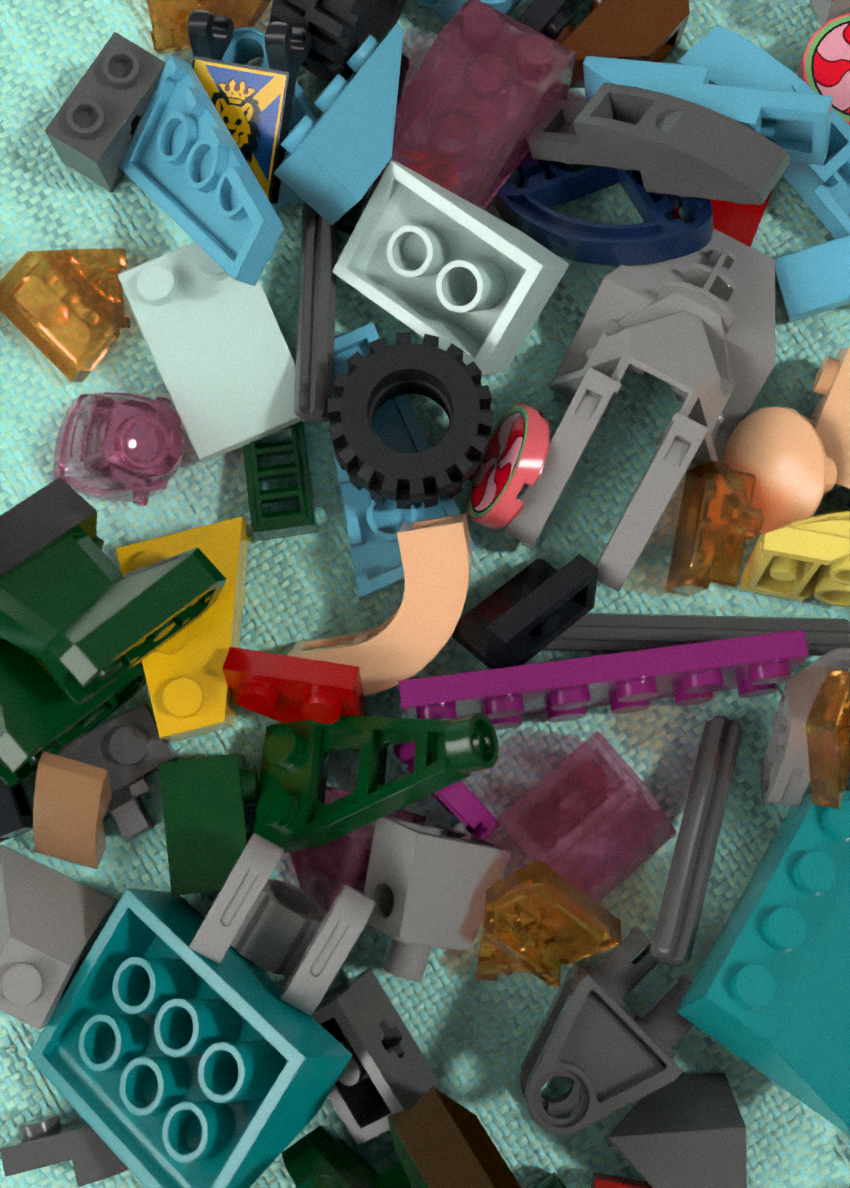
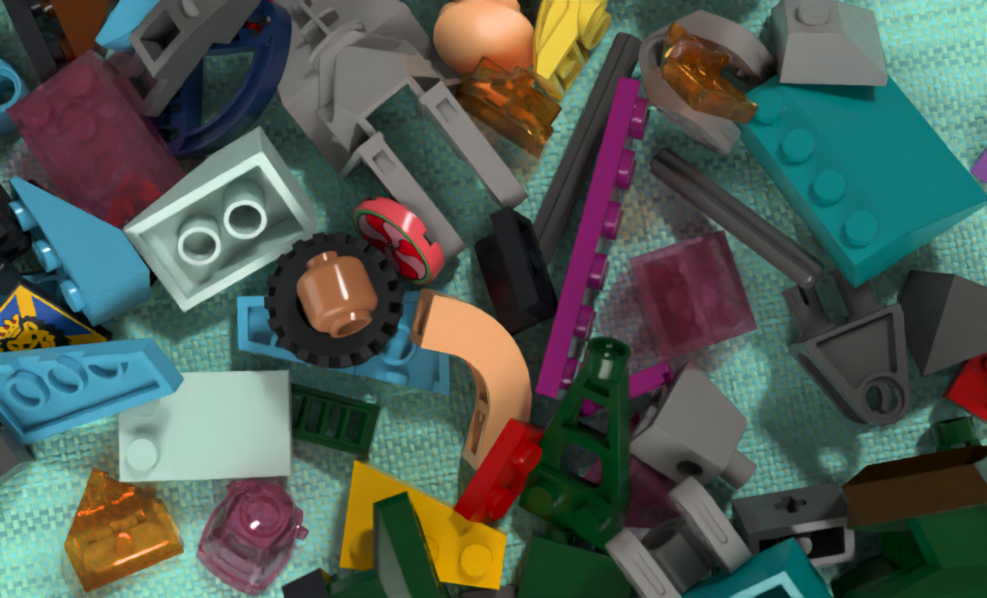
camera: 70 degrees left, 5 degrees up
(315, 318) = (218, 340): dark grey axle -> none
(416, 409) = (337, 294): none -> nougat head
(538, 923) = (749, 360): clear orange slope -> none

